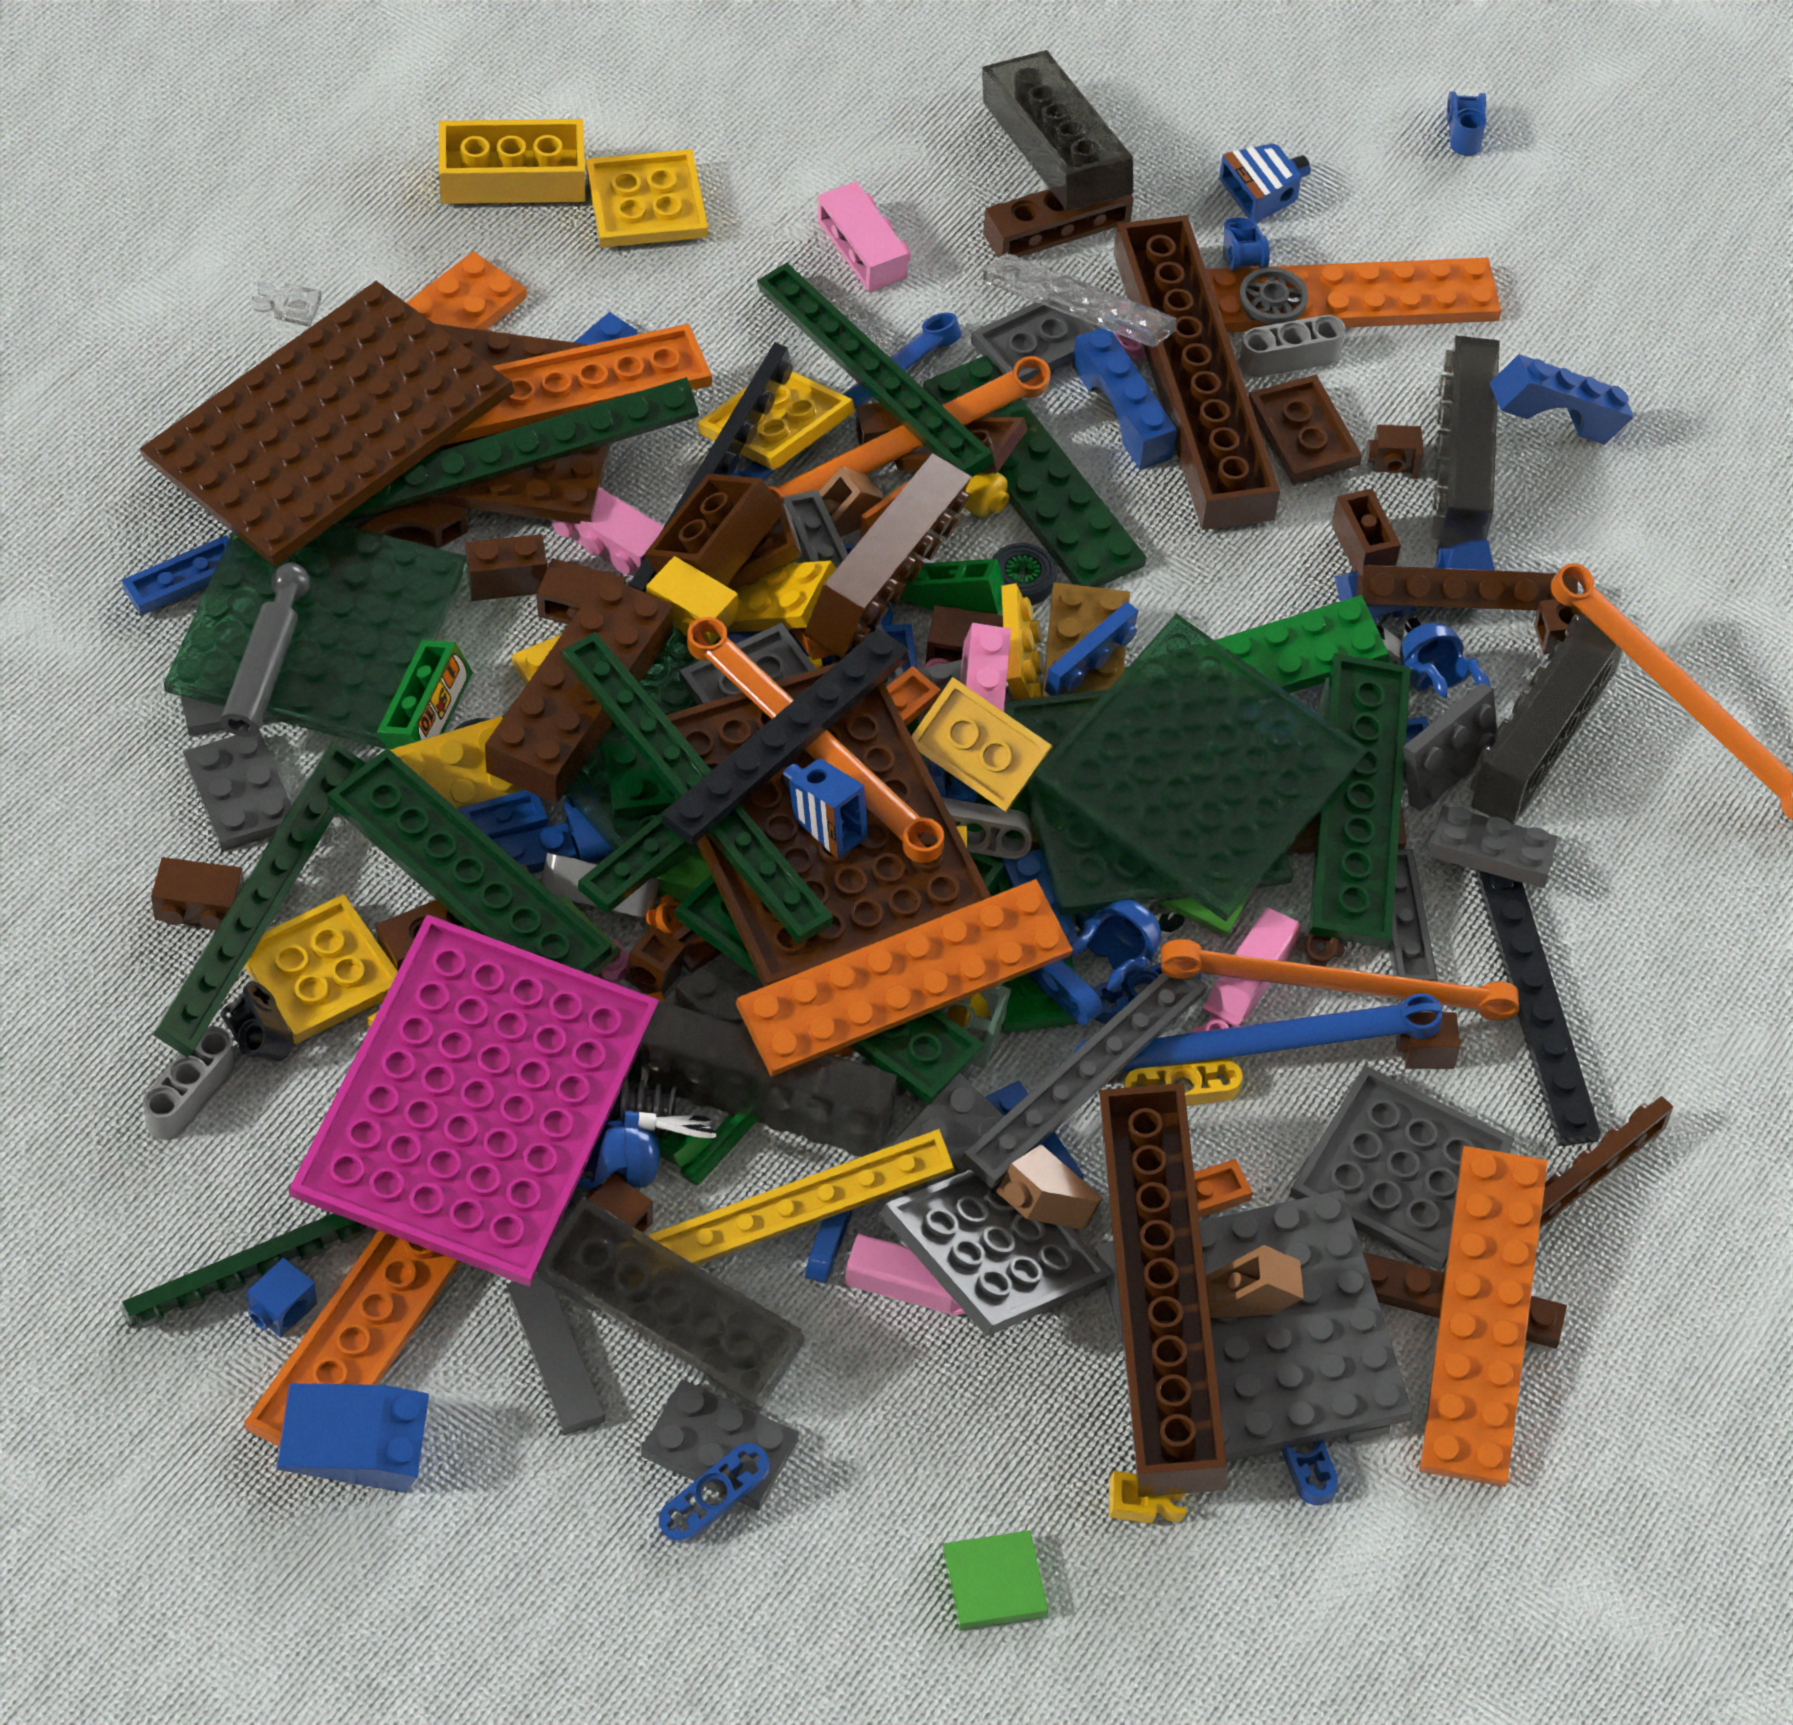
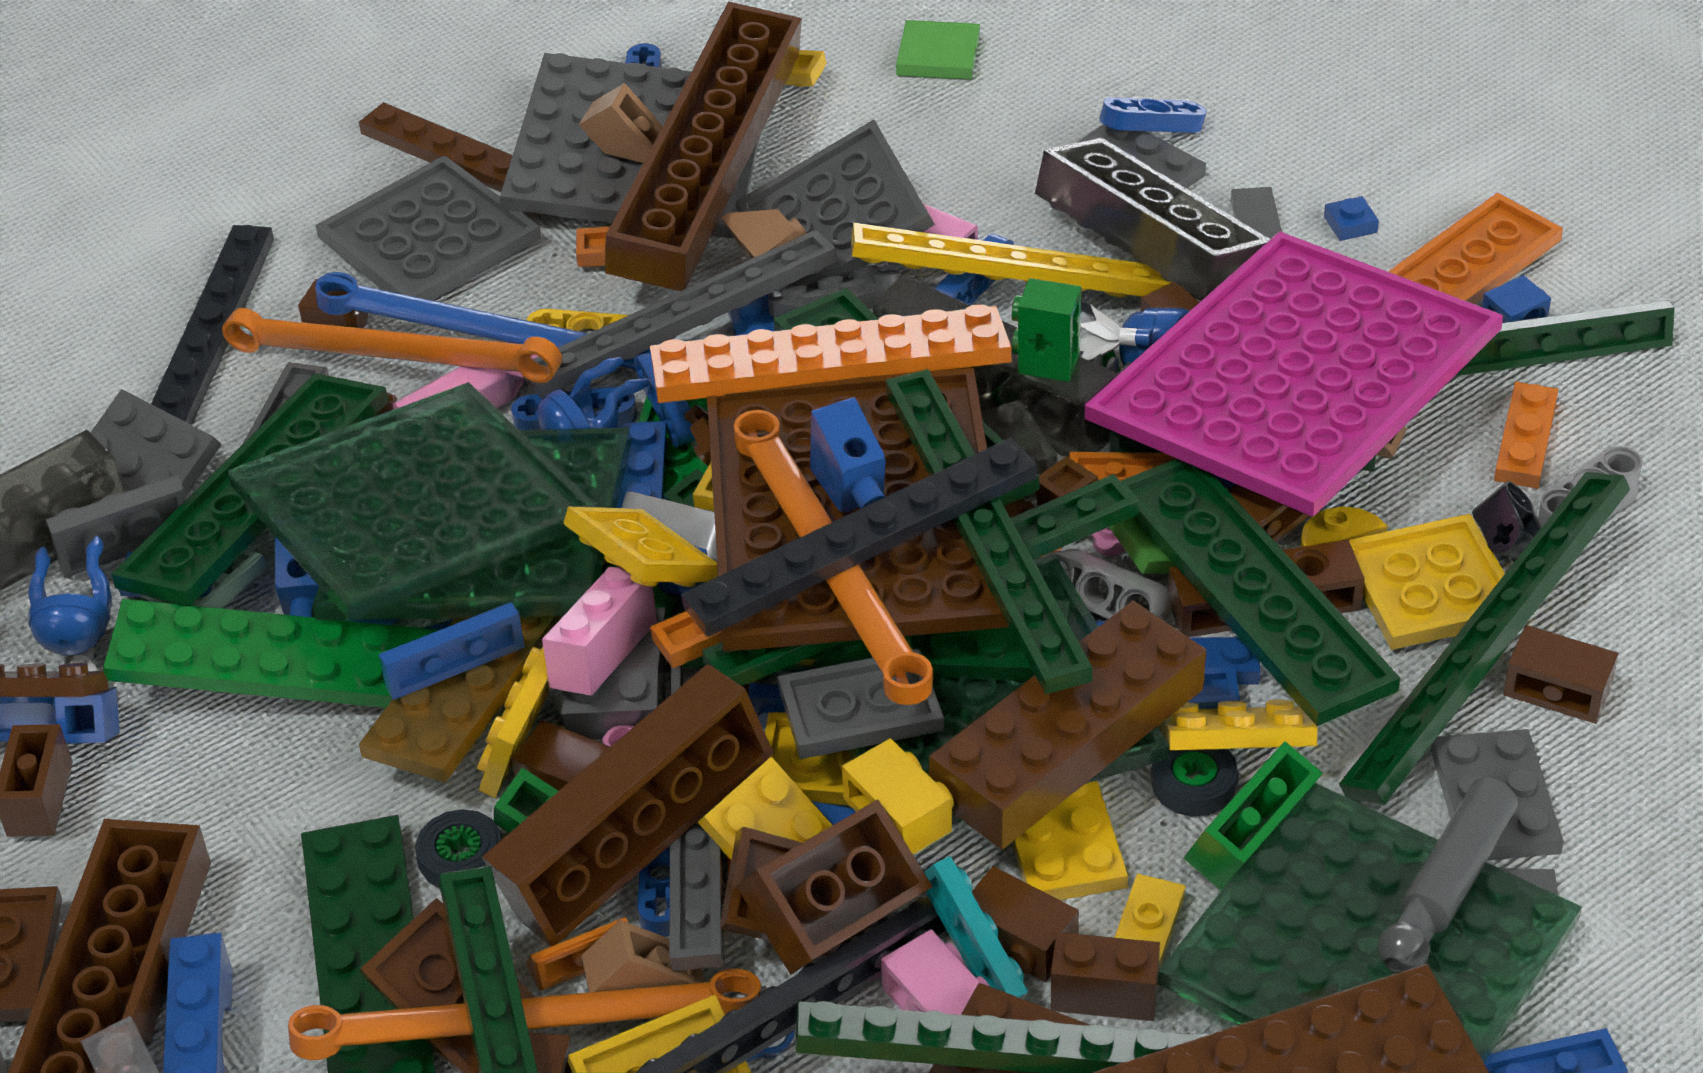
camera: 155 degrees left, 10 degrees down
(254, 1162) = (1526, 435): none -> orange plate
(354, 1434) = (1459, 187): blue slope -> none
(470, 1413) = (1351, 218): none -> blue plate
(488, 630) = (1151, 911): none -> yellow plate
(607, 551) = (972, 929): none -> teal plate
(709, 1013) = (1047, 329): none -> green brick
(1484, 1317) = (431, 110): orange plate -> none
(1613, 1150) = (281, 192): reddish brown plate -> none

